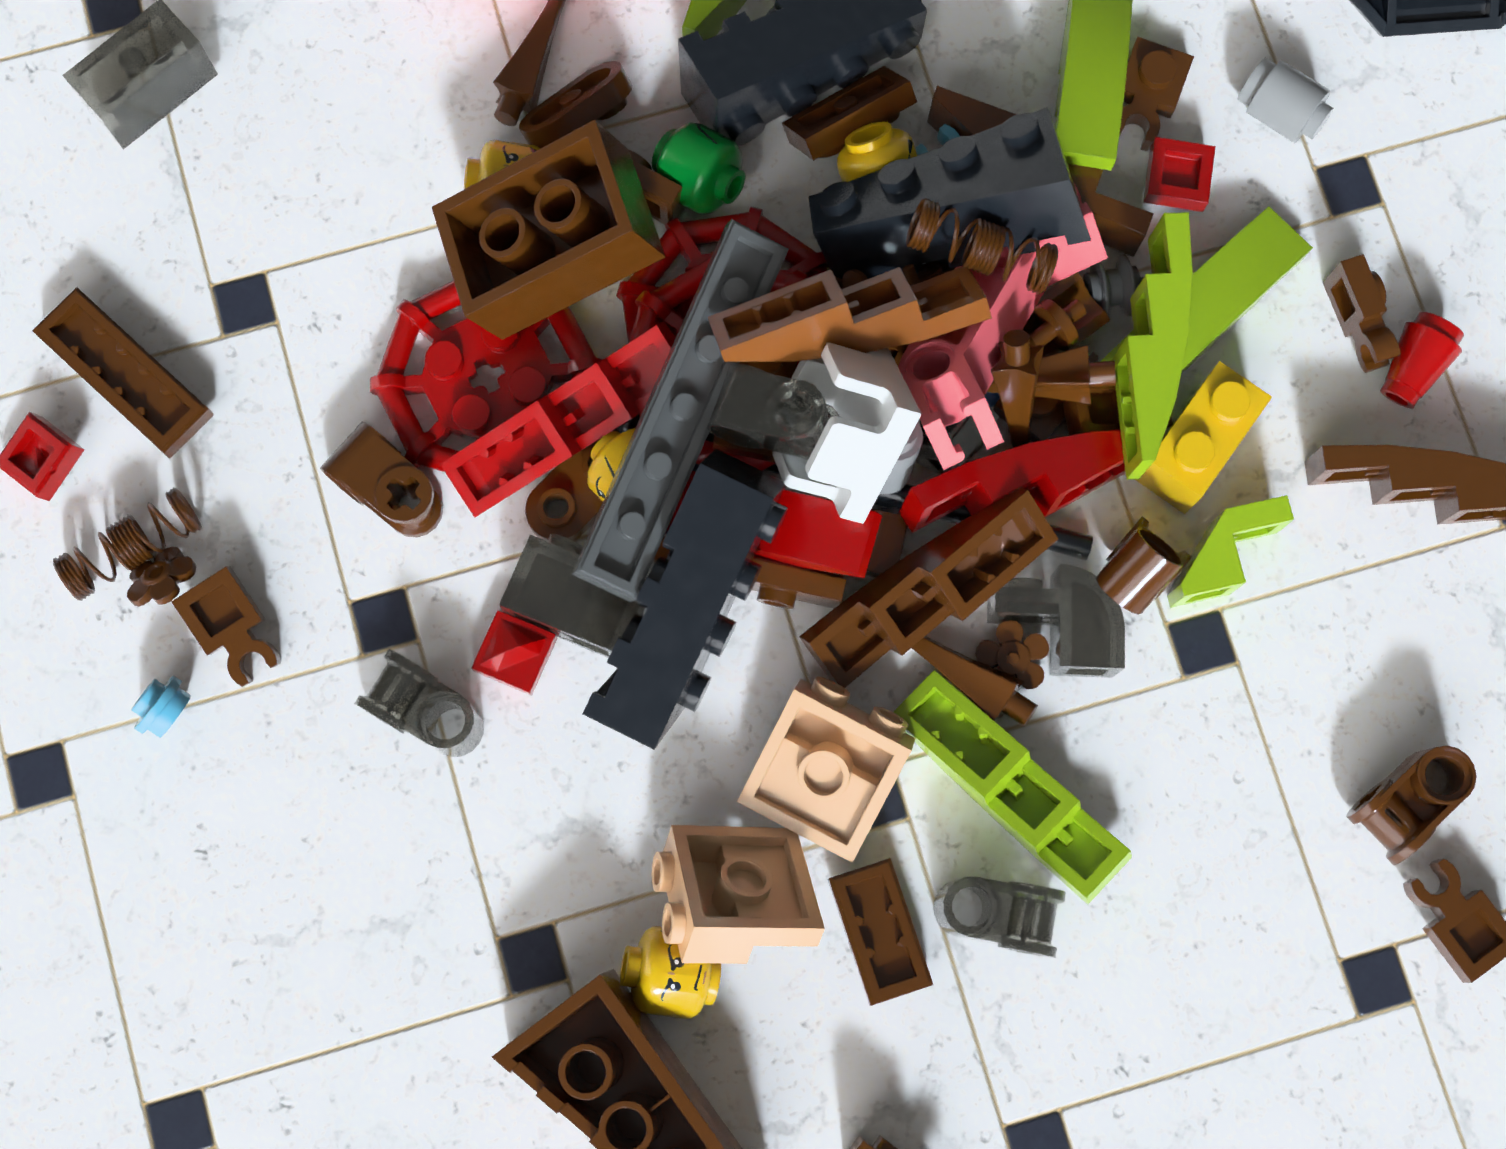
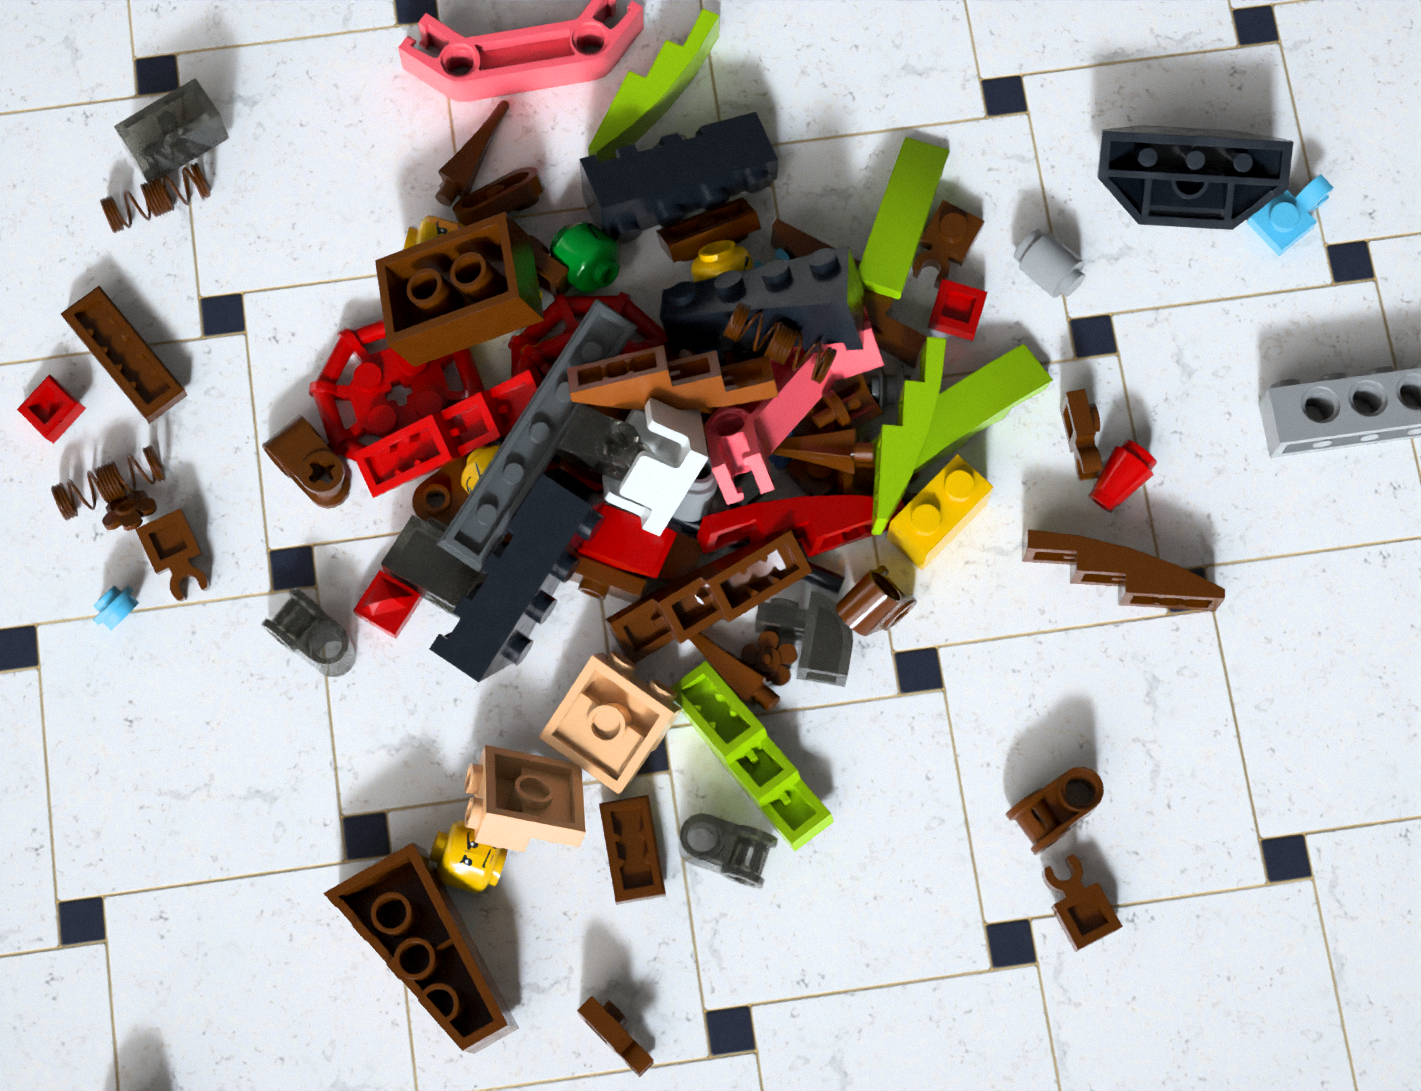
camera: 10 degrees right, 5 degrees down
(135, 162) = (156, 198): none -> reddish brown piece
(1017, 381) = (796, 449): reddish brown piece -> none
(1215, 562) = (931, 611): lime slope -> none

